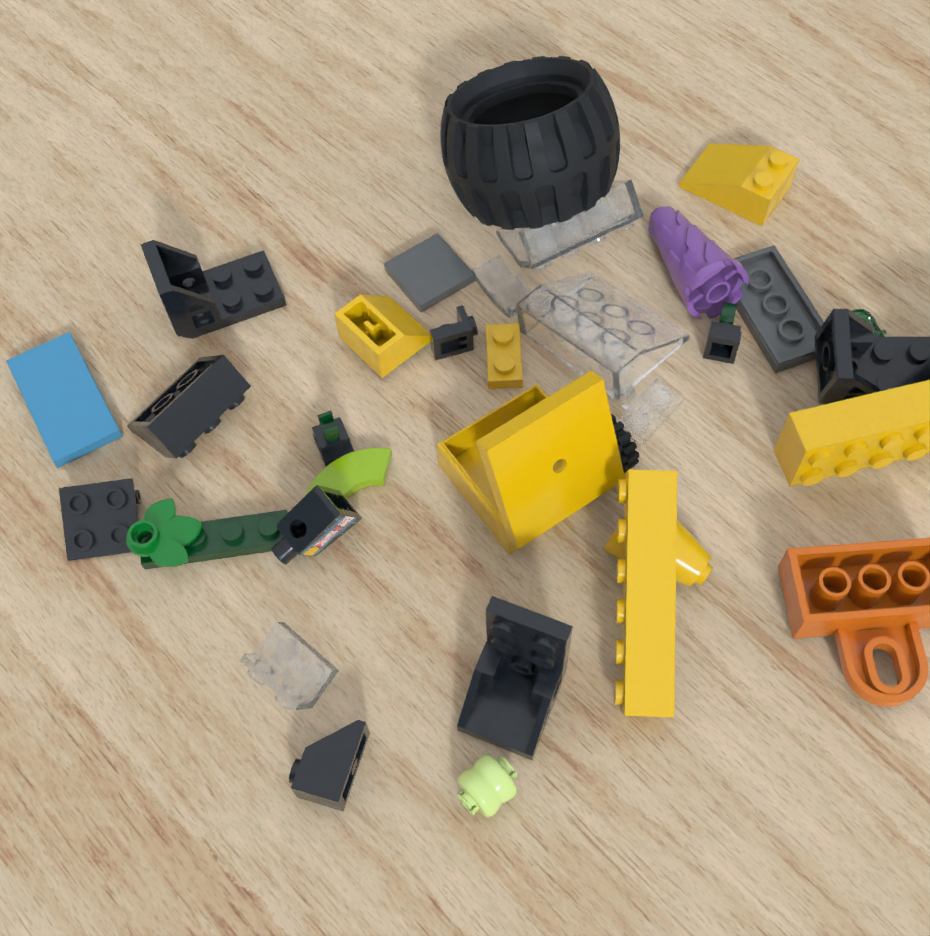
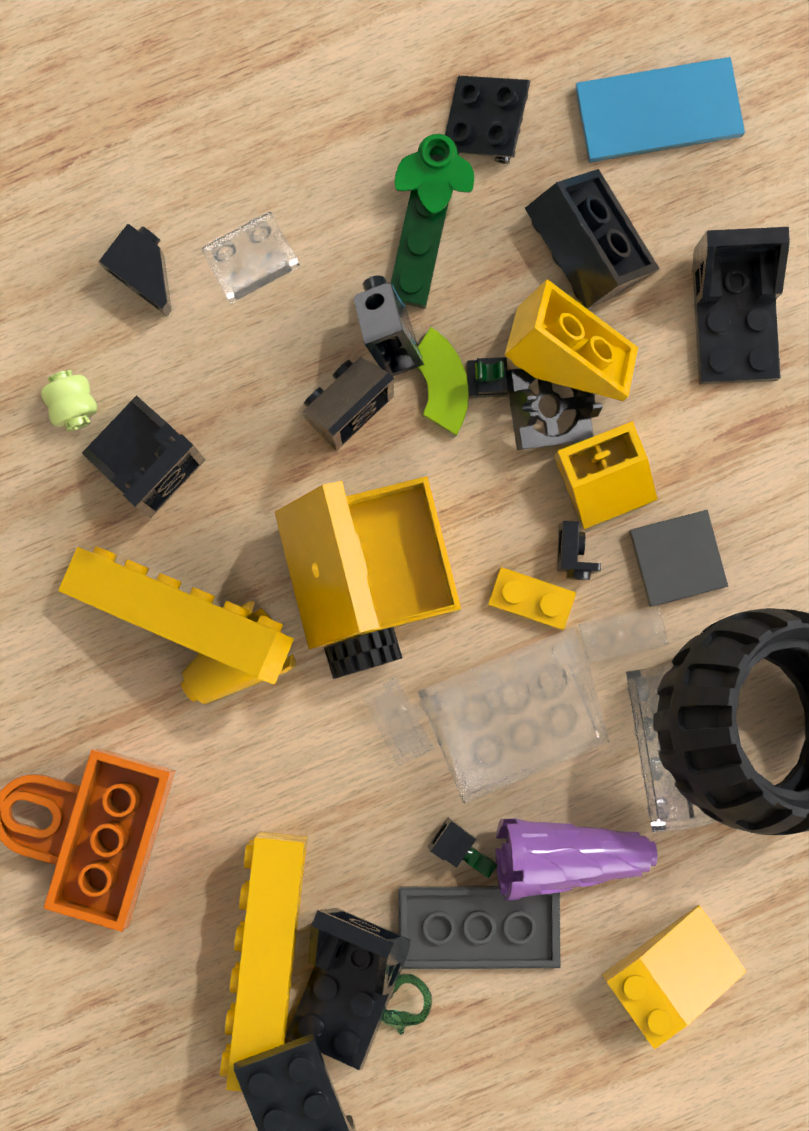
camera: 100 degrees right, 25 degrees up
(285, 386) = (570, 345): none -> yellow slope
(343, 394) = (526, 411): none -> black piece
(395, 521) = (349, 401): none -> black slope

